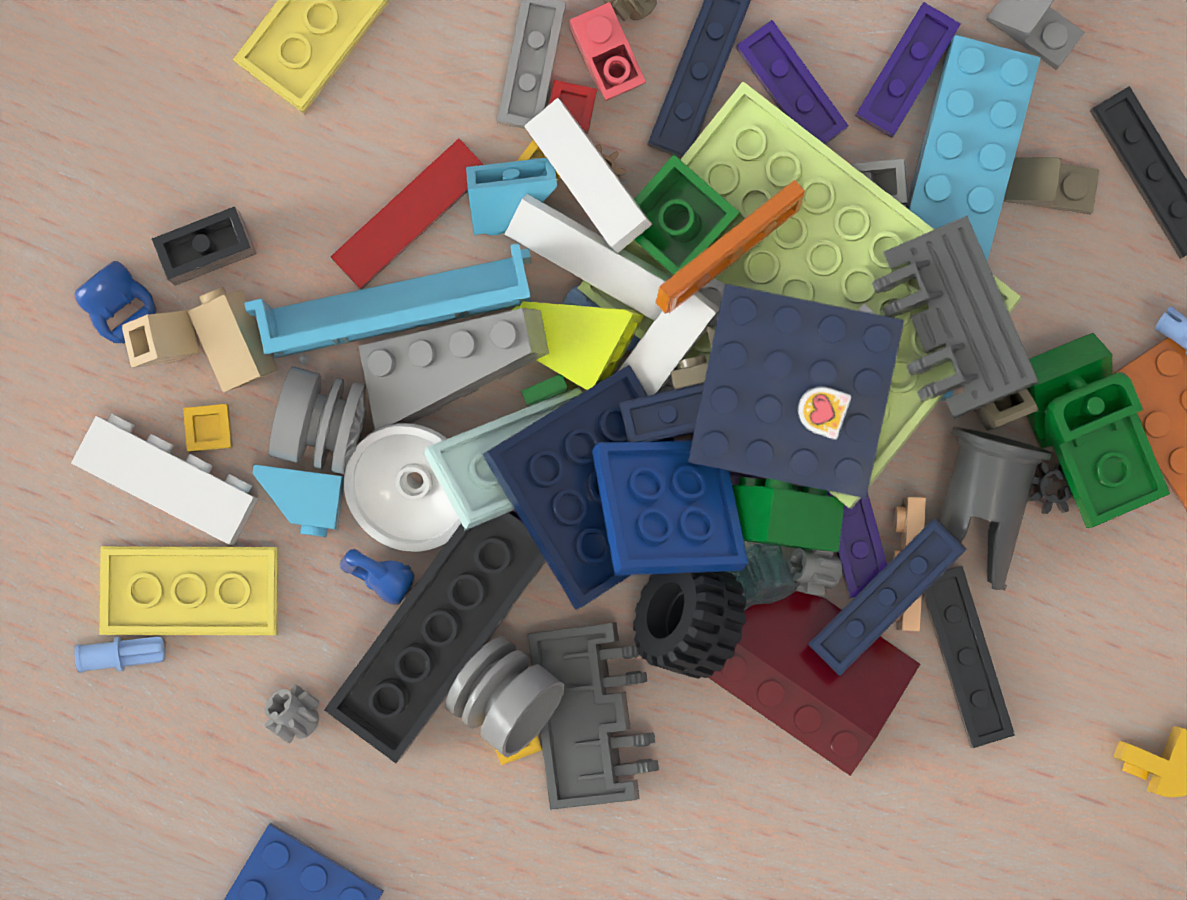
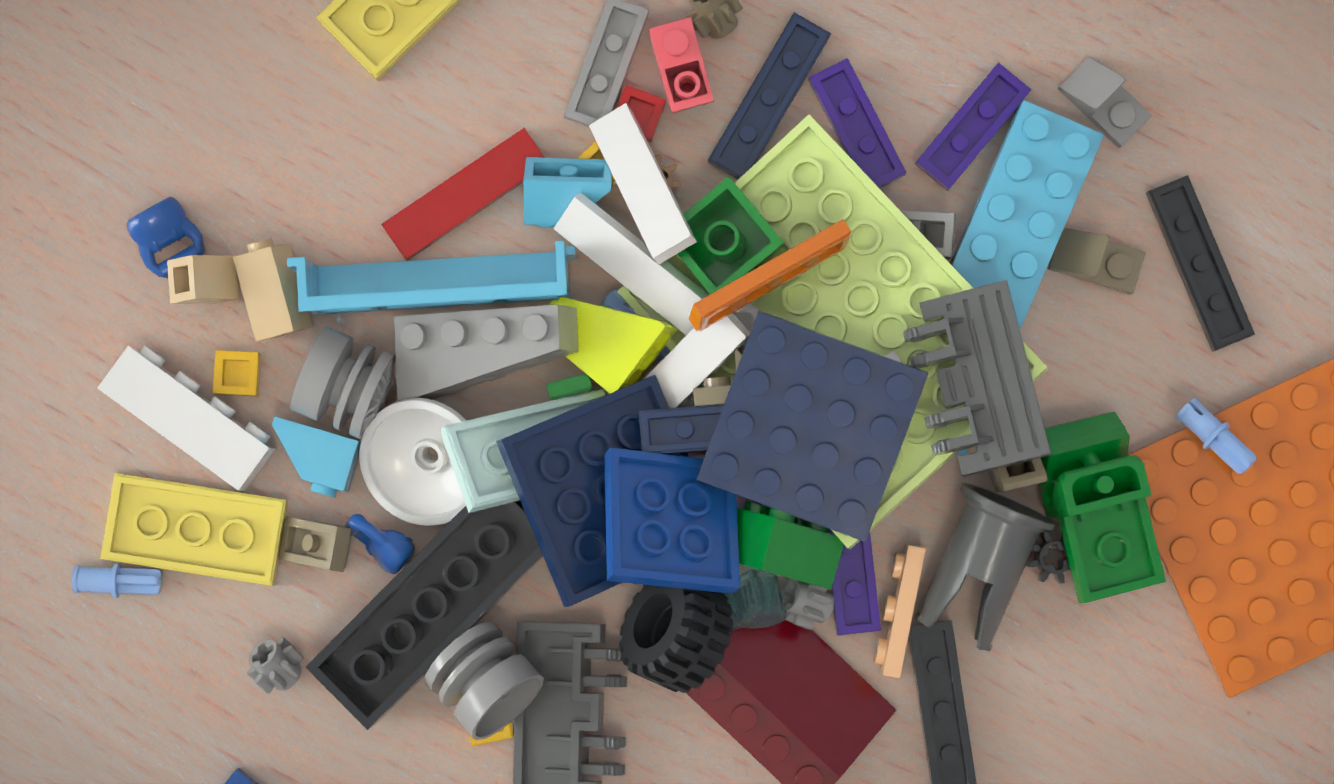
camera: 15 degrees right, 0 degrees up
(204, 246) = (259, 195): black brick -> none
(313, 586) = (315, 544): none -> dark tan slope
(823, 410) = (835, 450): tile -> none
(887, 596) = (873, 640): dark blue tile -> none

